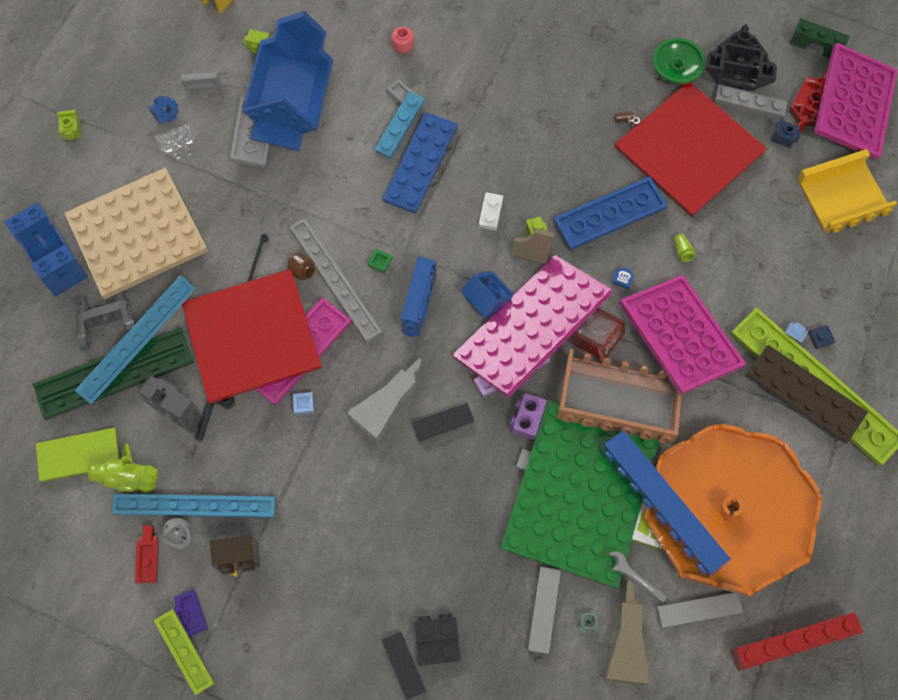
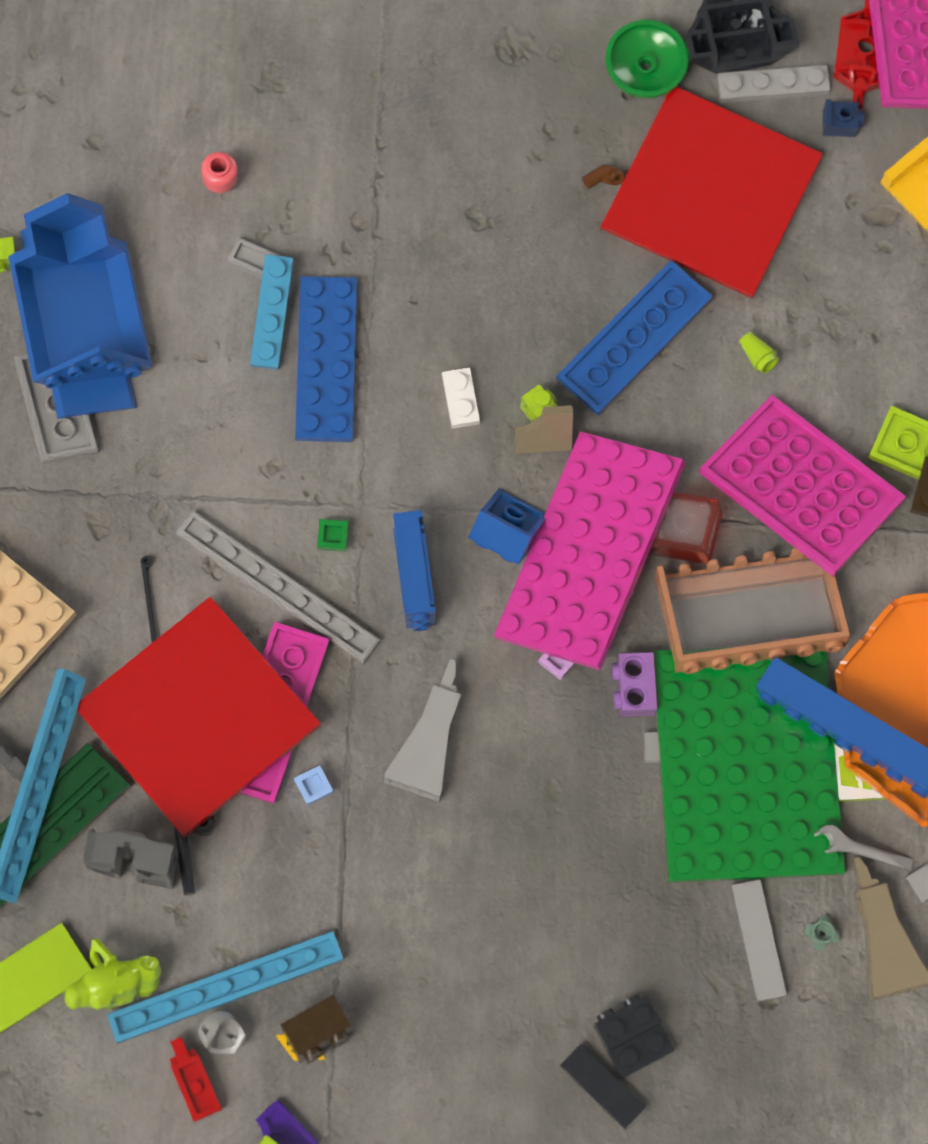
camera: 25 degrees left, 5 degrees up
(301, 266) = (222, 586): reddish brown head -> none
(443, 422) = (519, 737): black tile -> none
(623, 278) = (689, 429): tile -> none

